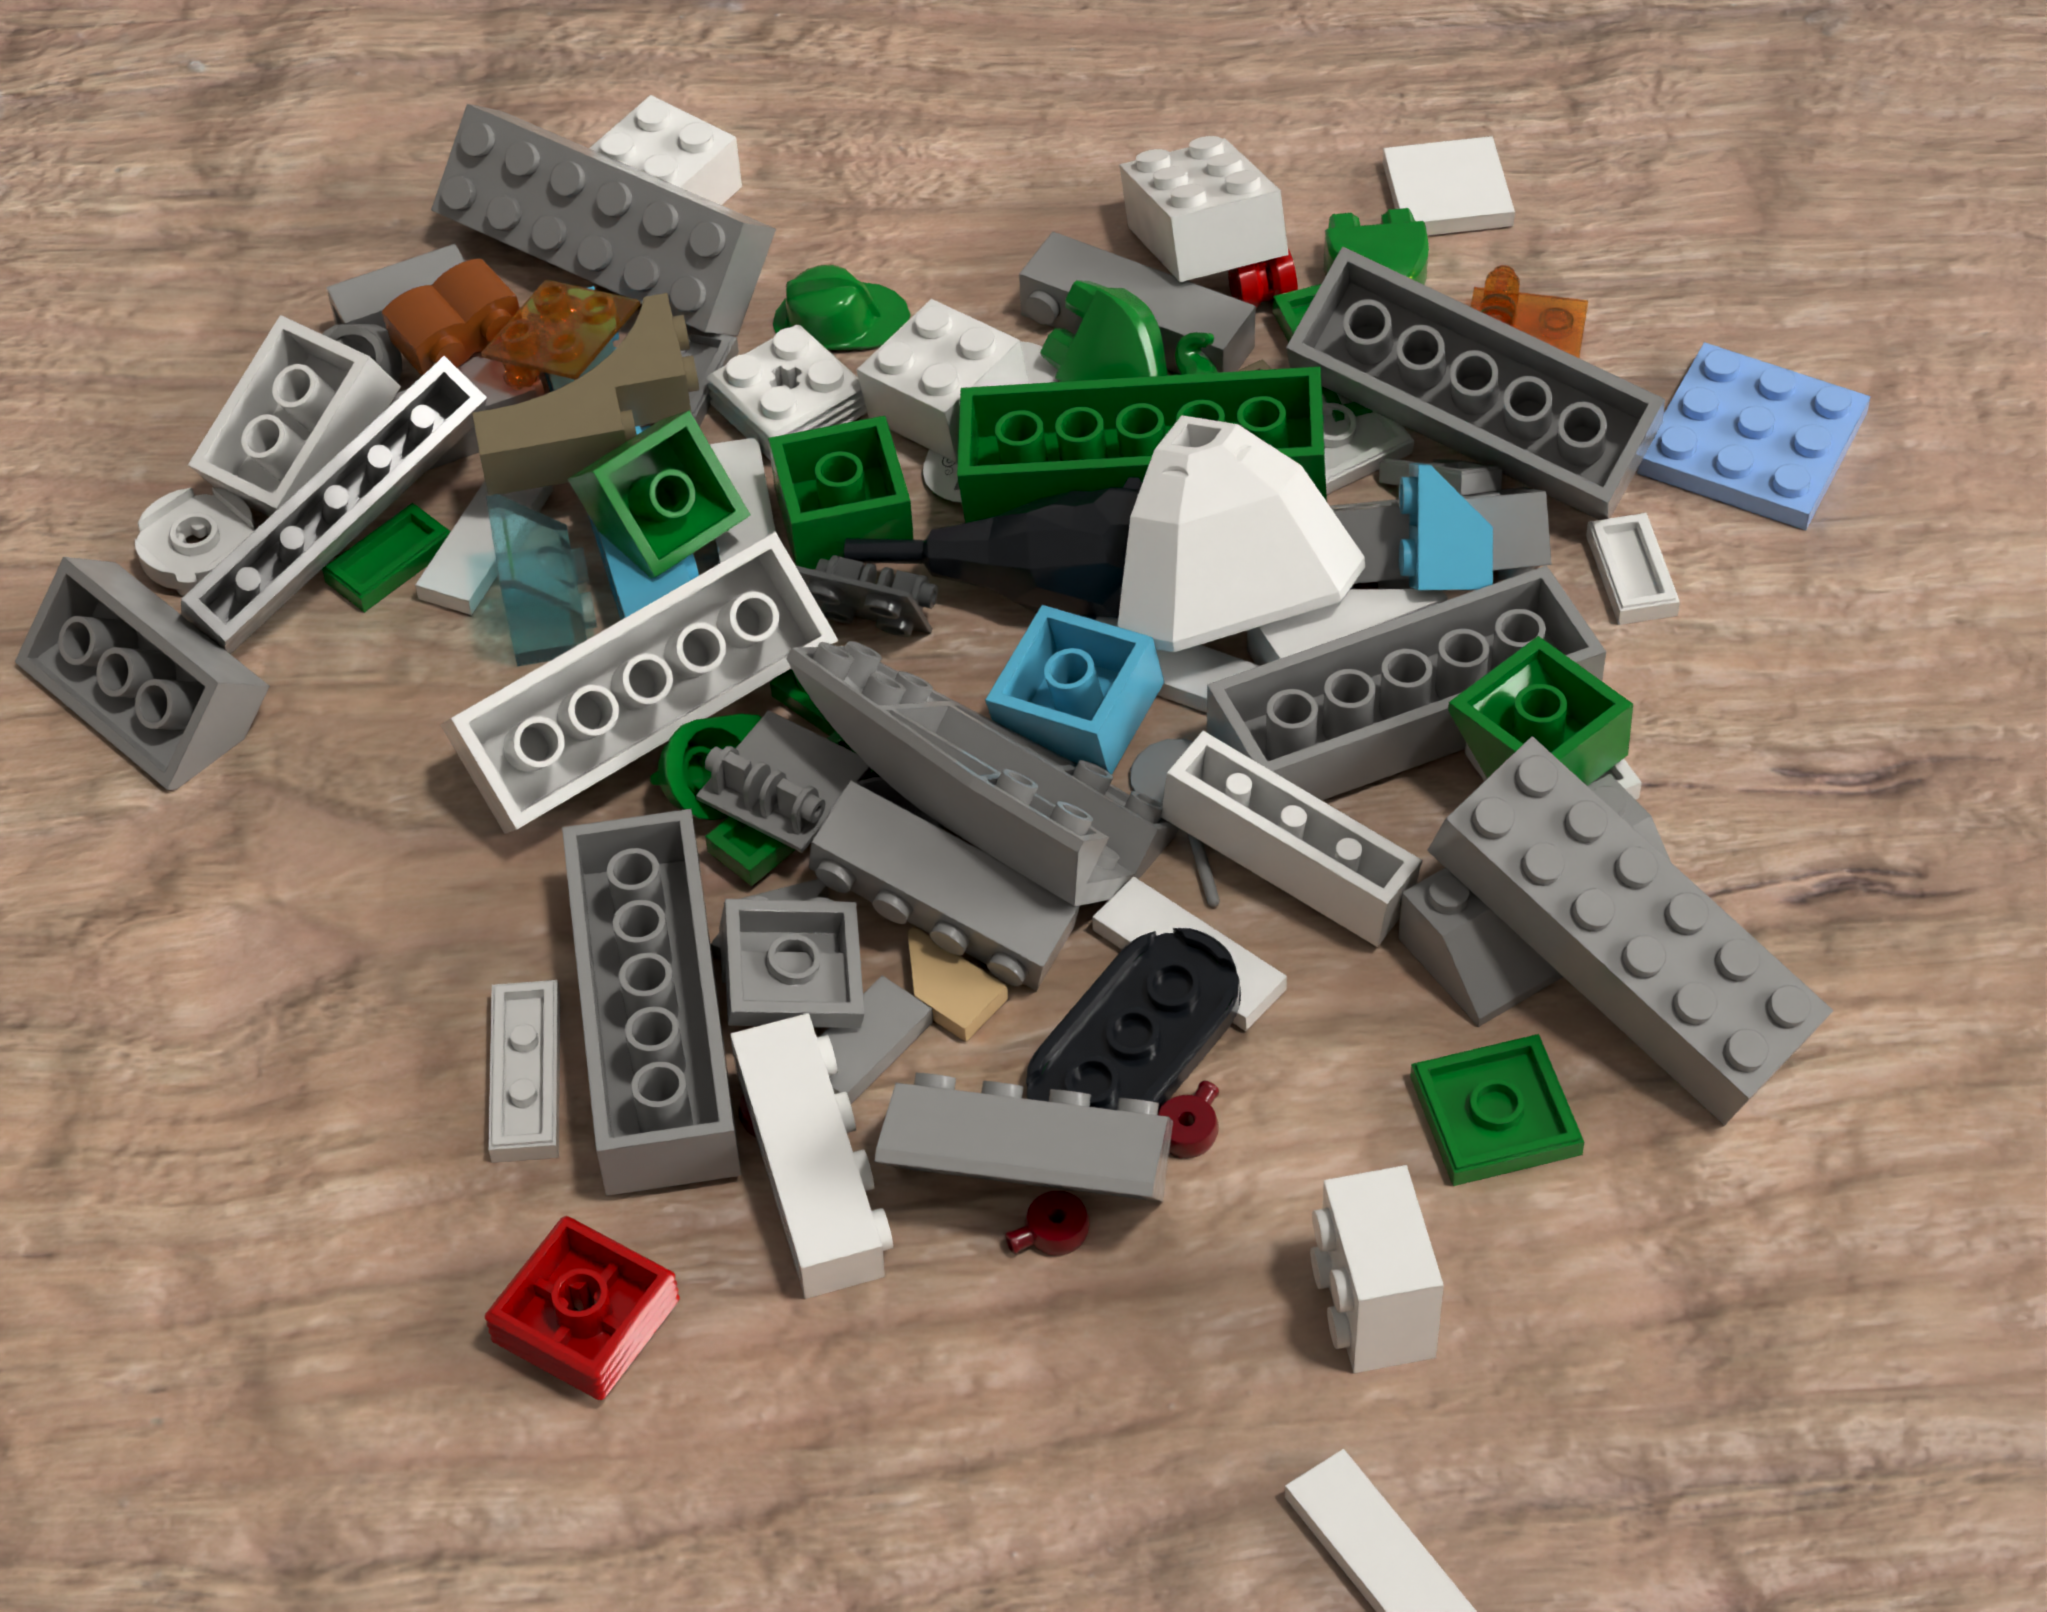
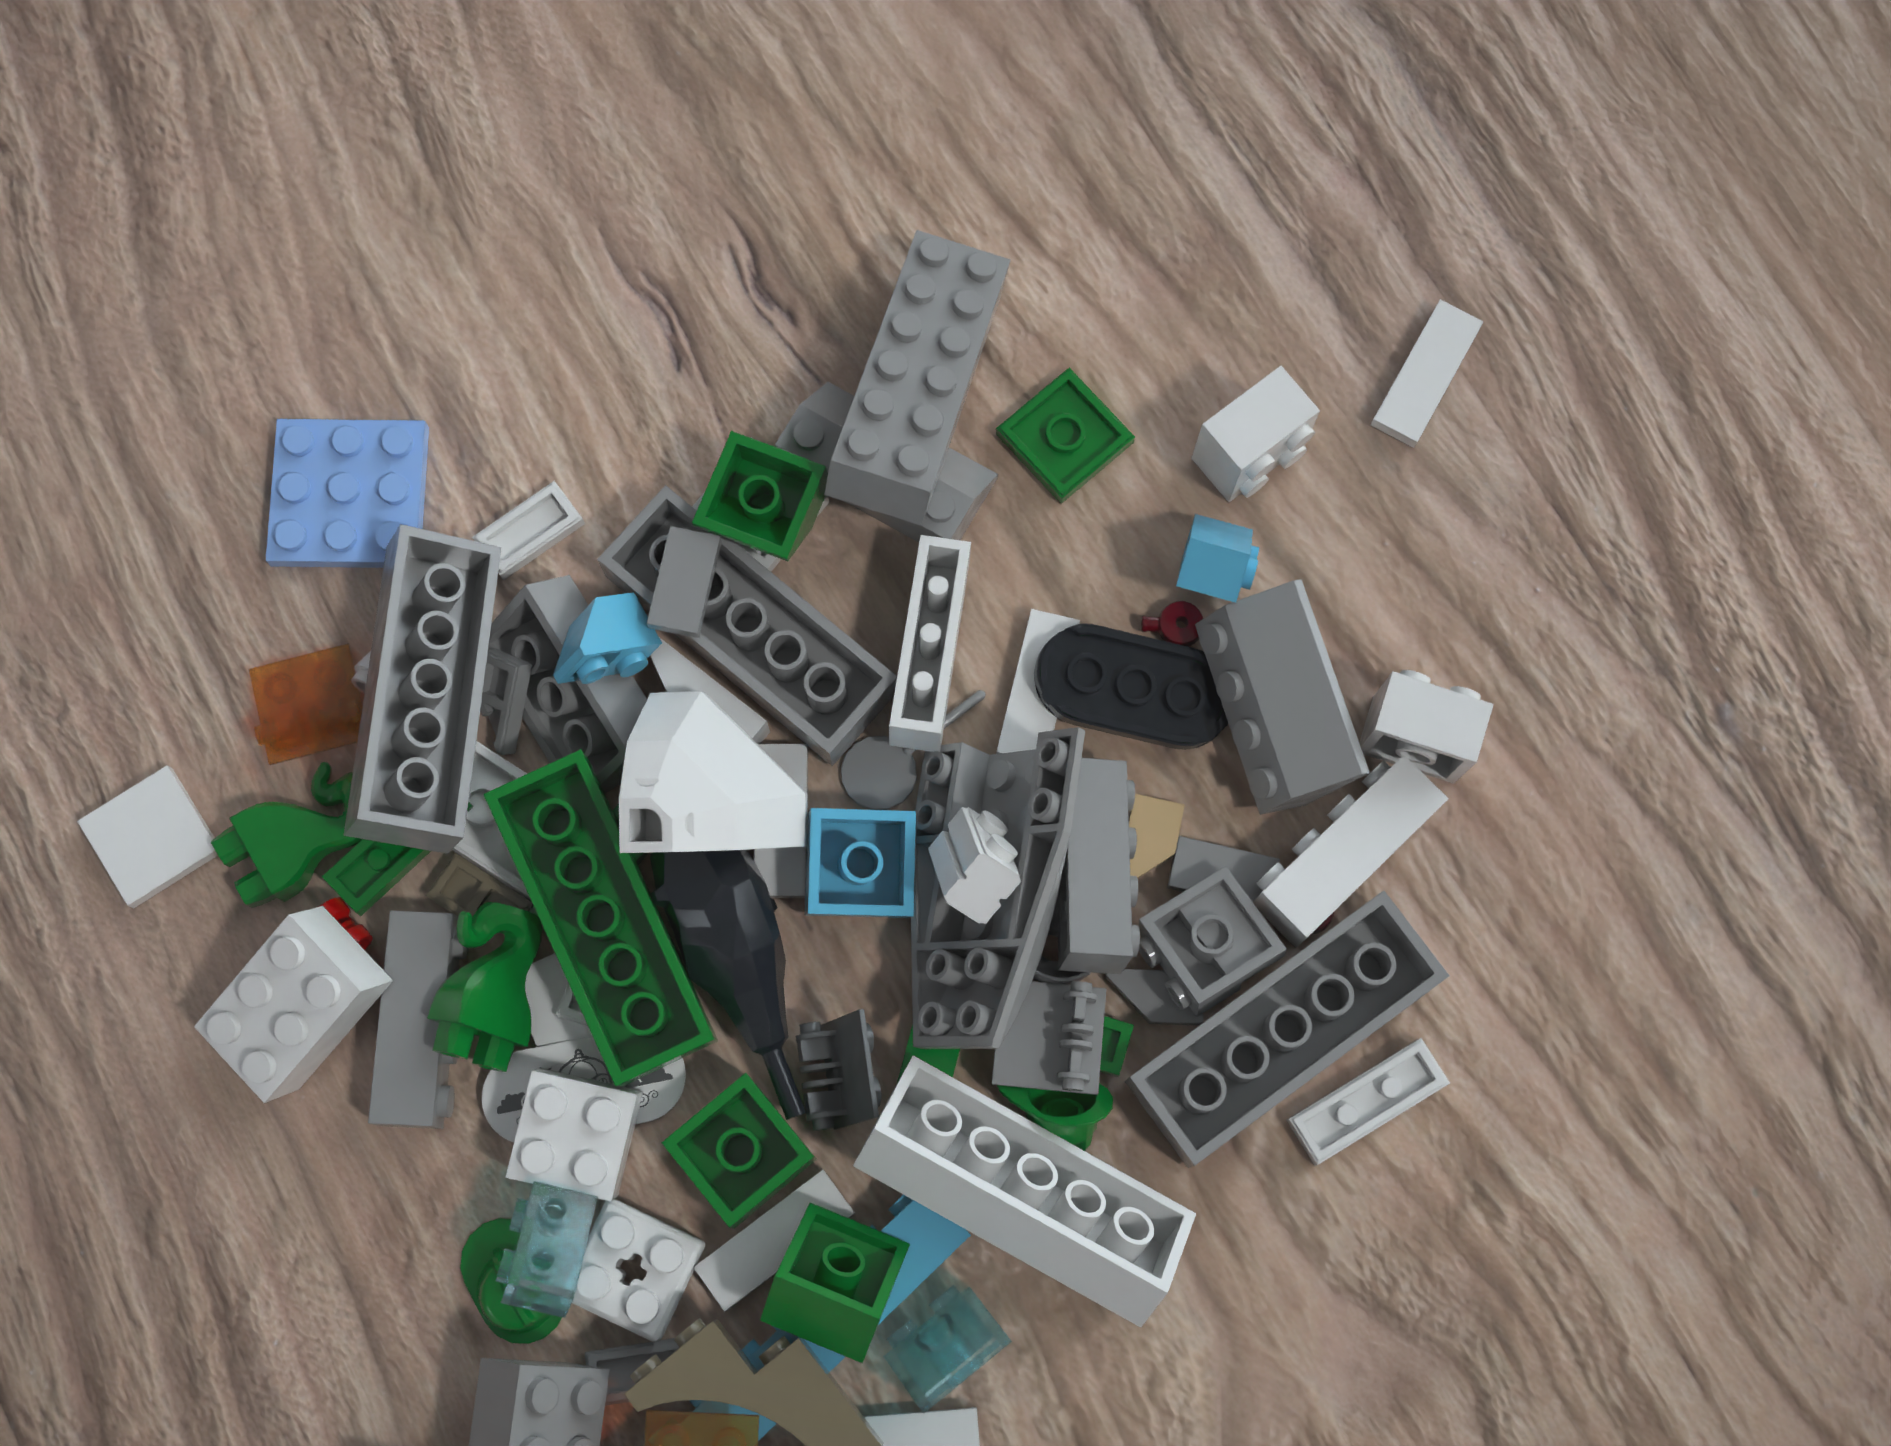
camera: 120 degrees left, 25 degrees up
(573, 1271) = (1564, 915): red brick -> none
(840, 302) = (548, 1249): none -> clear light blue brick
(901, 1282) = (1427, 724): none -> white brick
(996, 728) = (975, 864): none -> white brick
(1238, 1152) = (1218, 559): none -> medium azure brick
(1472, 617) = (684, 582): none -> light grey tile

